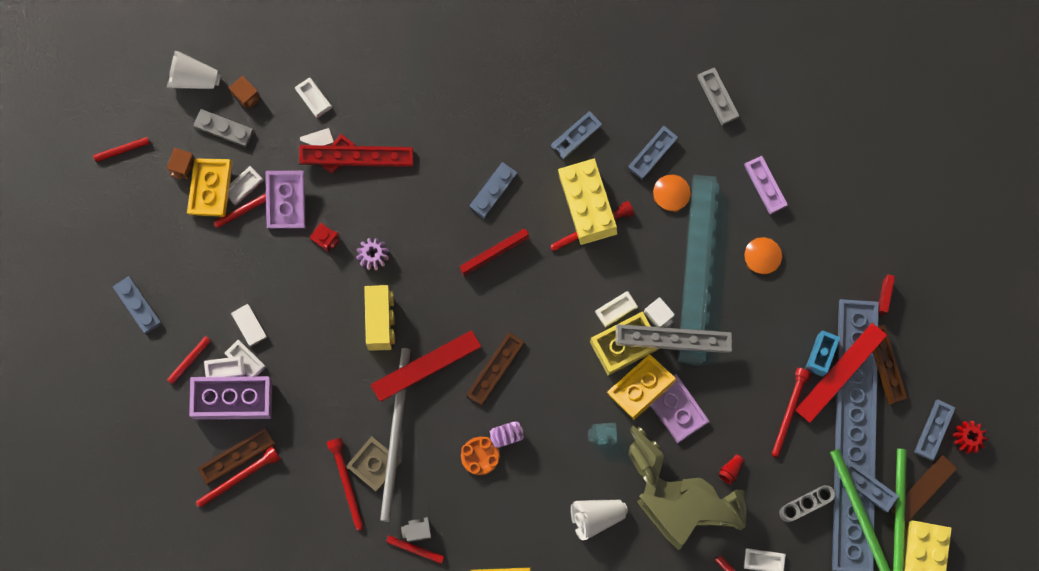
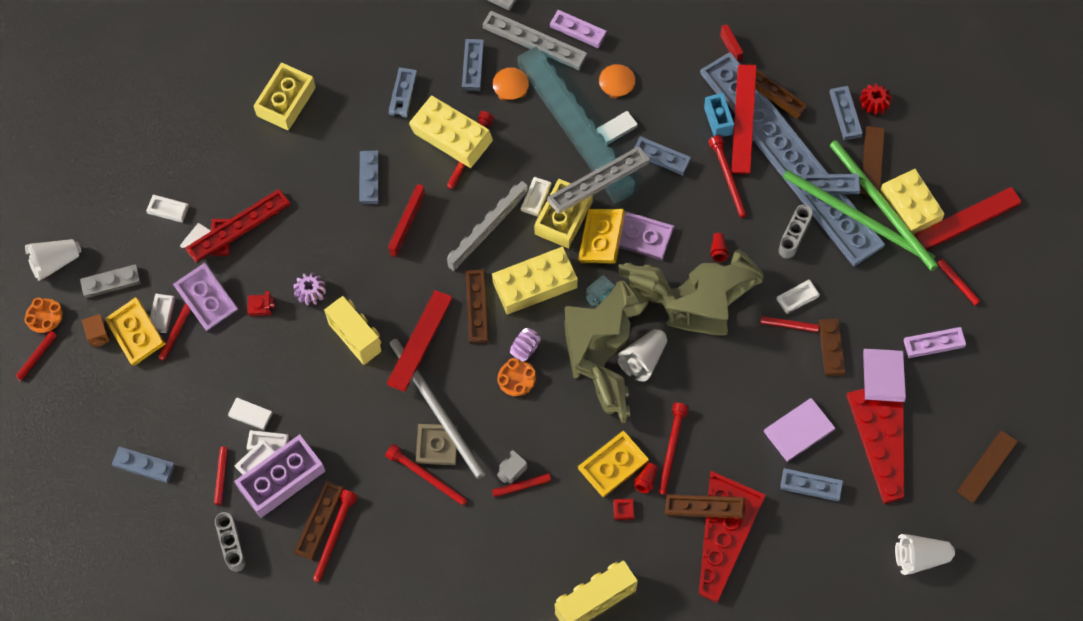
camera: 30 degrees left, 10 degrees down
(151, 119) = (43, 315): none -> orange dish
(154, 412) = (225, 534): none -> light grey beam
(244, 92) = (107, 241): dark orange brick -> none
(476, 68) = (284, 96): none -> light yellow brick
(548, 307) = (482, 230): none -> light grey plate
(557, 384) = (534, 280): none -> light yellow brick
(569, 475) = (597, 336): none -> olive piece
(659, 314) = (572, 169): white brick -> none
(721, 168) = (531, 38): none -> light grey plate
(730, 298) = (617, 127): none -> white tile
(748, 352) = (664, 156): none -> sand blue plate

